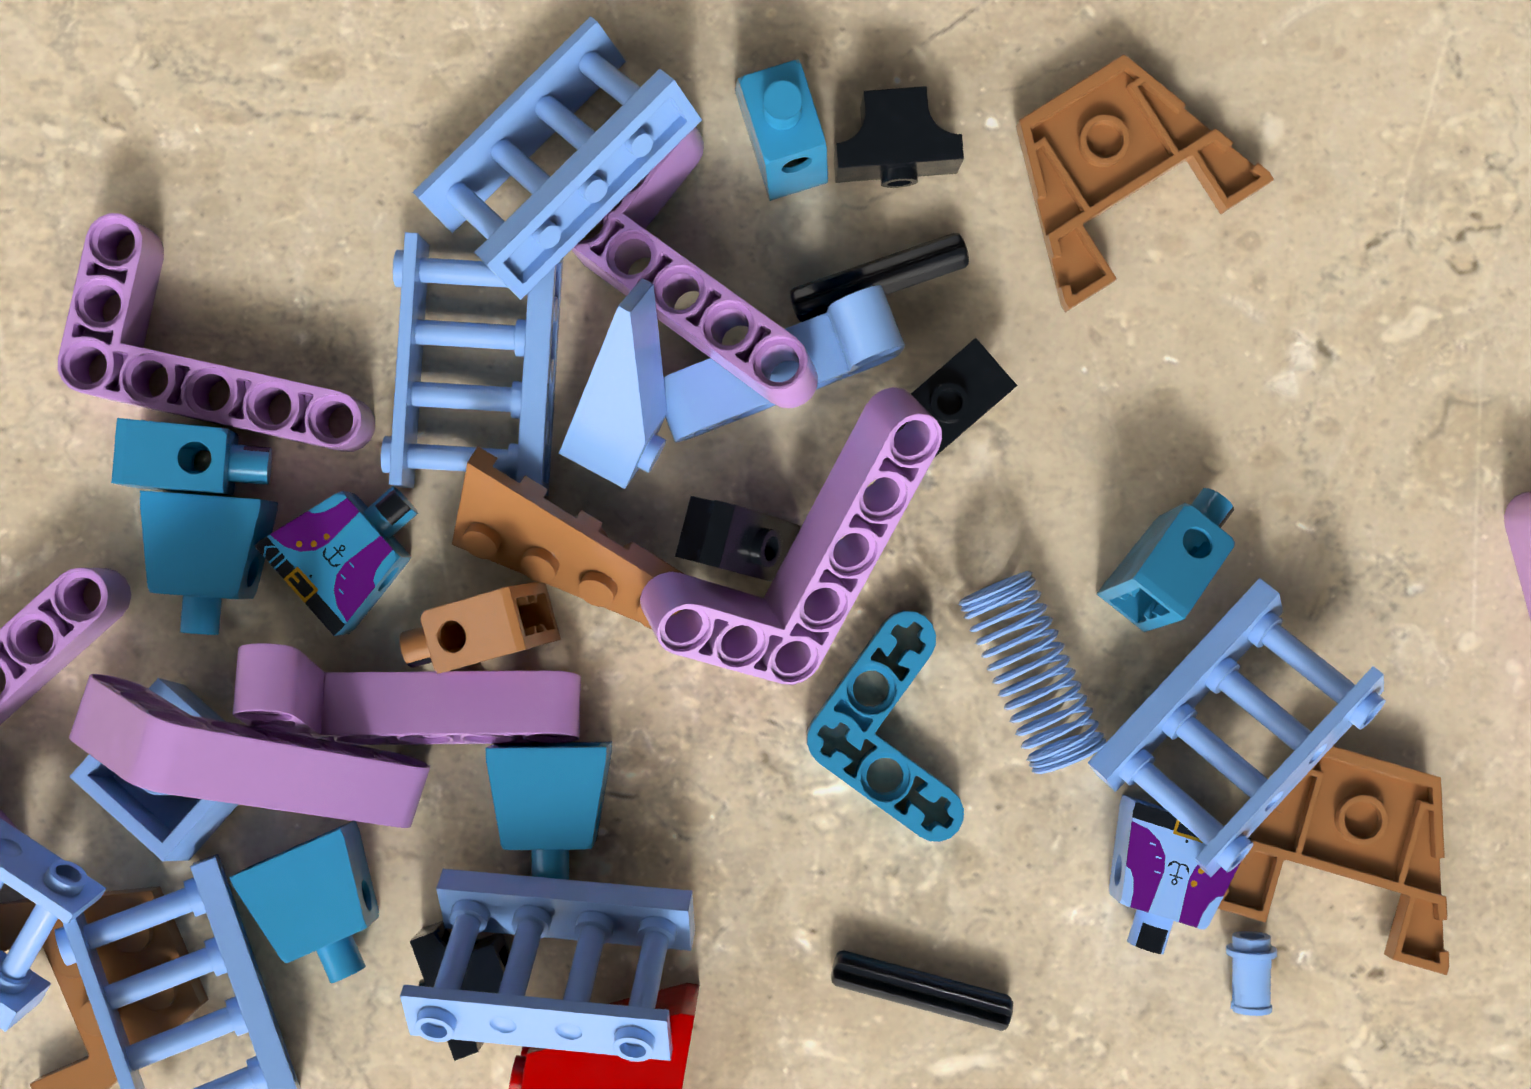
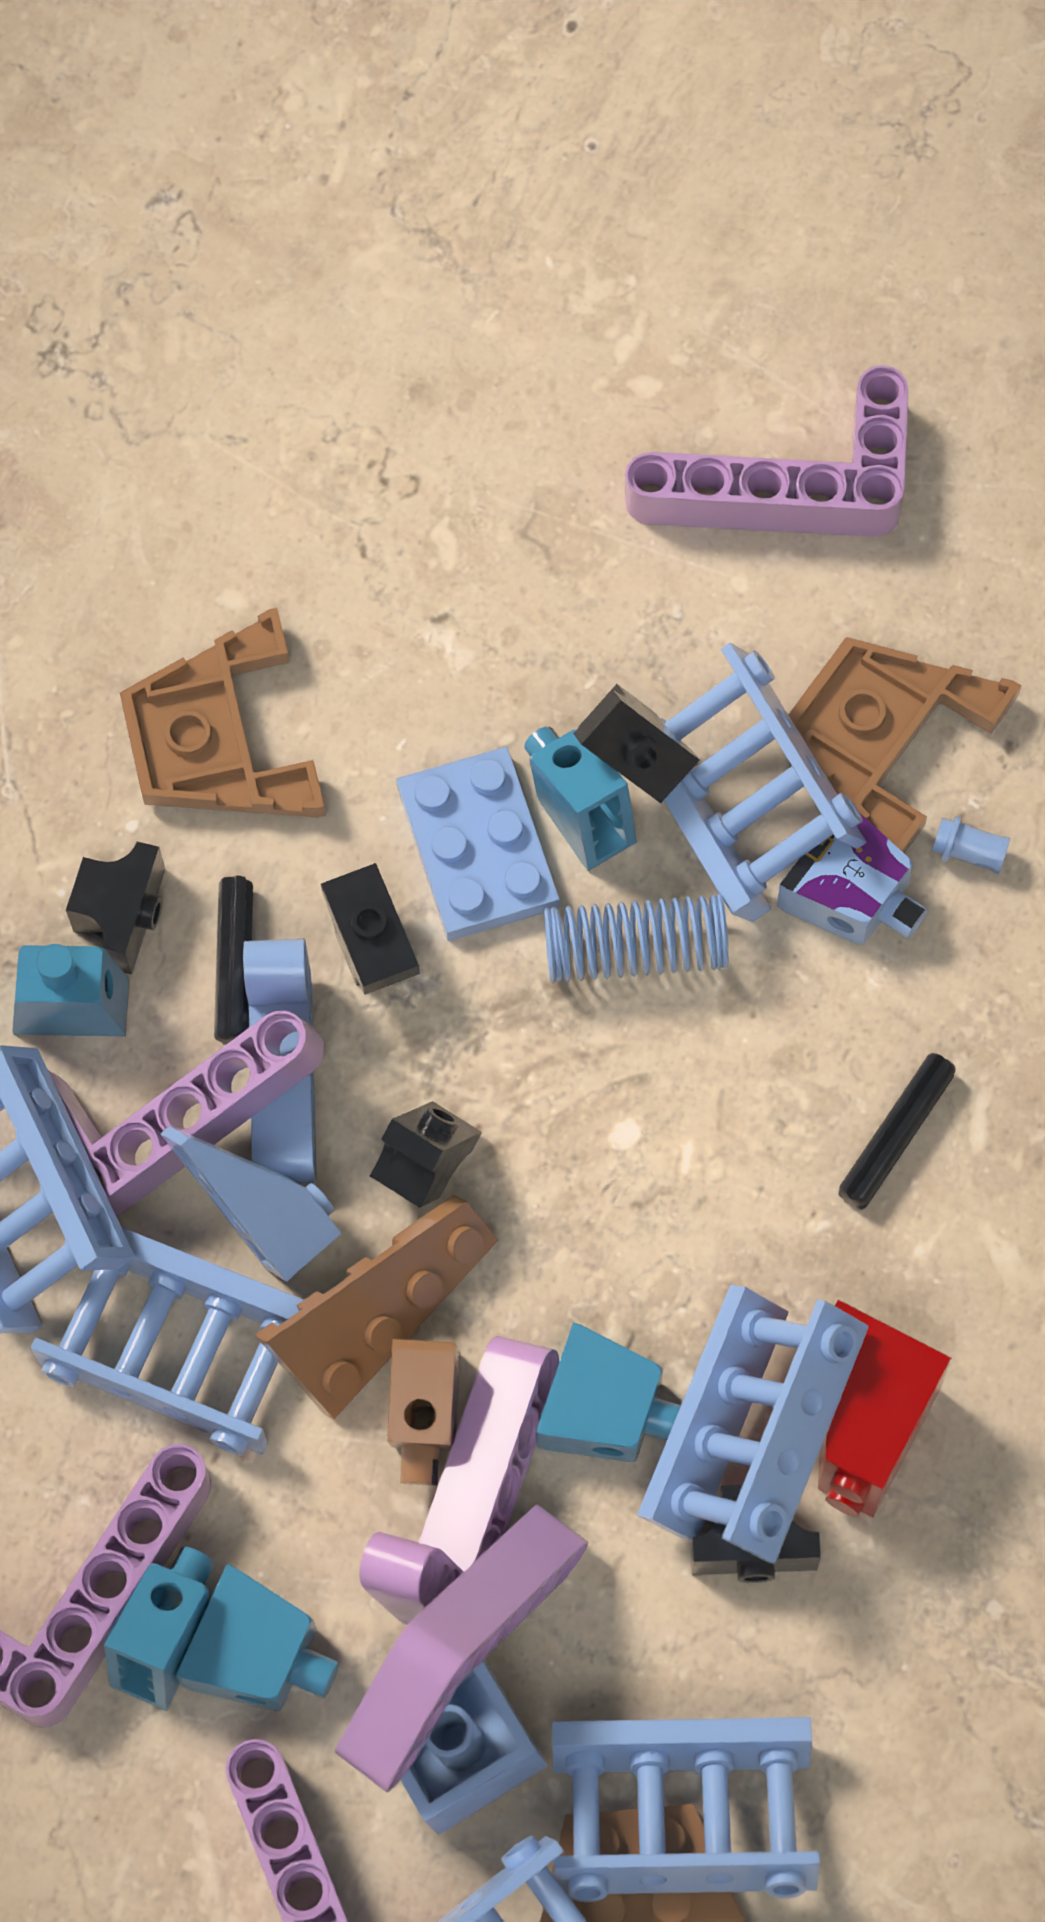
camera: 65 degrees left, 20 degrees down
(314, 899) = (626, 1653): dark azure torso -> none
(342, 555) = (305, 1517): torso -> none
(821, 575) = (469, 1068): lavender beam -> none
(865, 721) = (632, 1102): dark azure beam -> none
(1087, 474) = (477, 843): none -> light blue plate
(1236, 608) = (636, 743): none -> black brick

